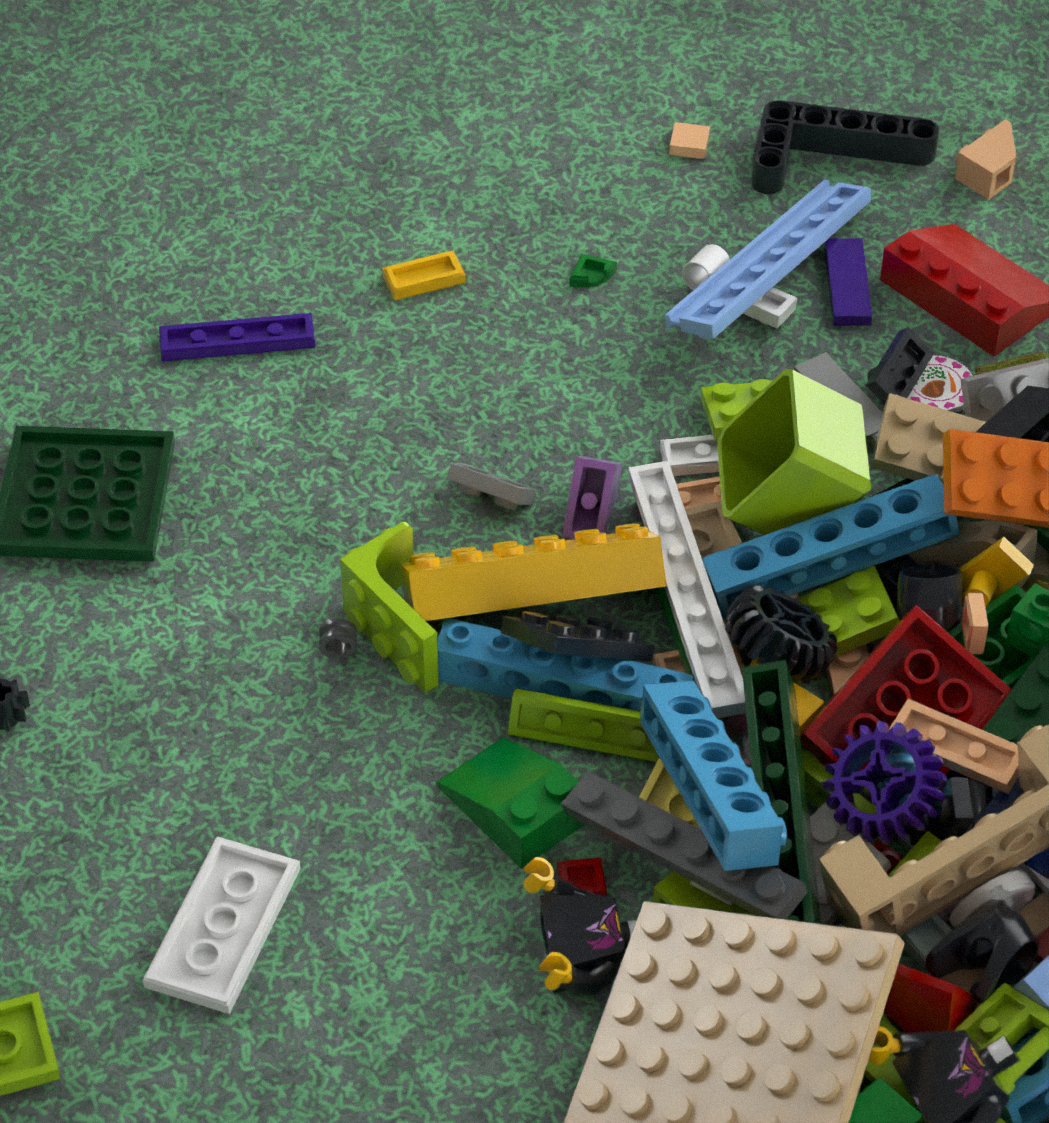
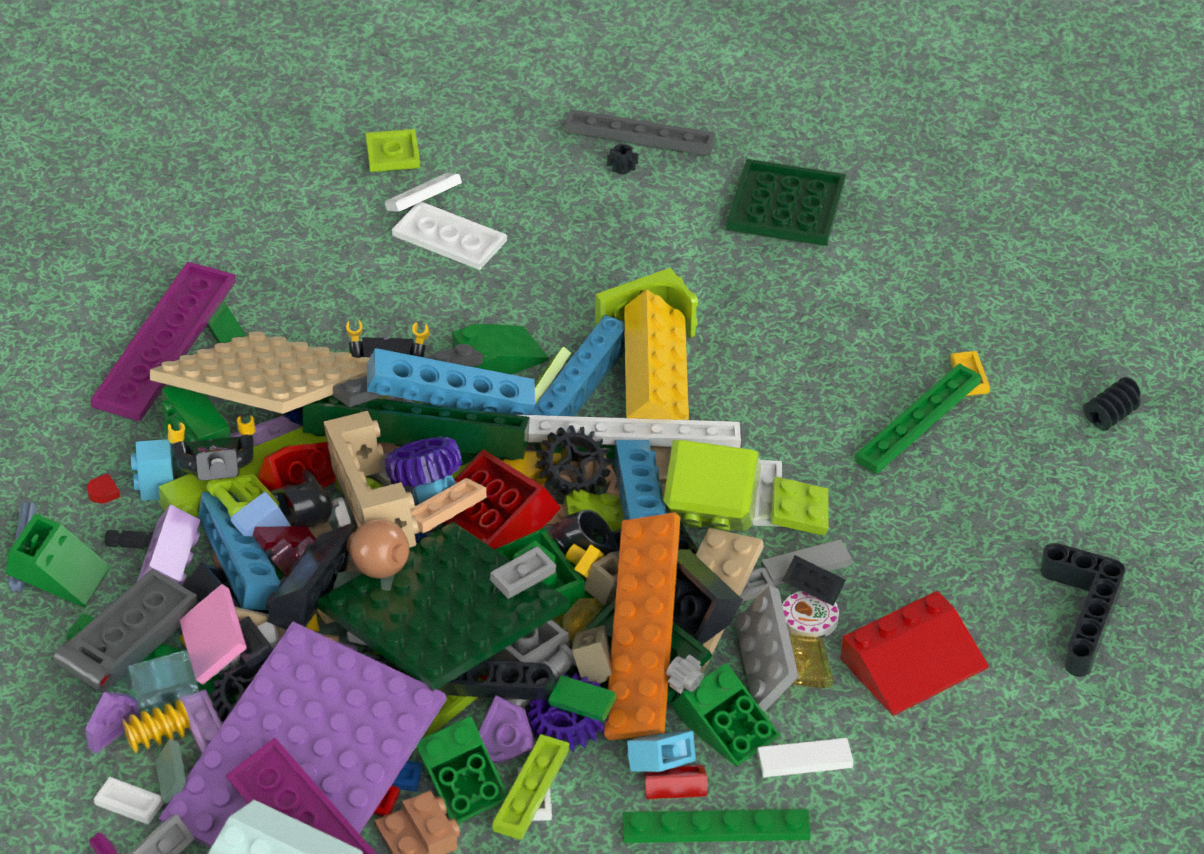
camera: 100 degrees right, 5 degrees down
(122, 976) = (422, 192): none -> white tile
(236, 337) = (920, 281): dark purple tile -> none
(467, 131) = (1113, 404): none -> black piece
(474, 481) = (754, 373): light grey plate -> none
(545, 306) = (917, 418): none -> green plate
(571, 637) = (592, 372): black plate -> none
(591, 269) = (962, 456): green tile -> none
(591, 495) = (737, 408): medium lavender slope -> none
(689, 140) = (1103, 531): light nougat tile -> none
(767, 259) = (946, 536): light blue plate -> none
(770, 309) = (924, 521): white plate -> none
(848, 282) = (915, 586): dark purple tile -> none
(974, 623) = (547, 536): light nougat tile -> none
(989, 161) = (1053, 695): light nougat slope -> none

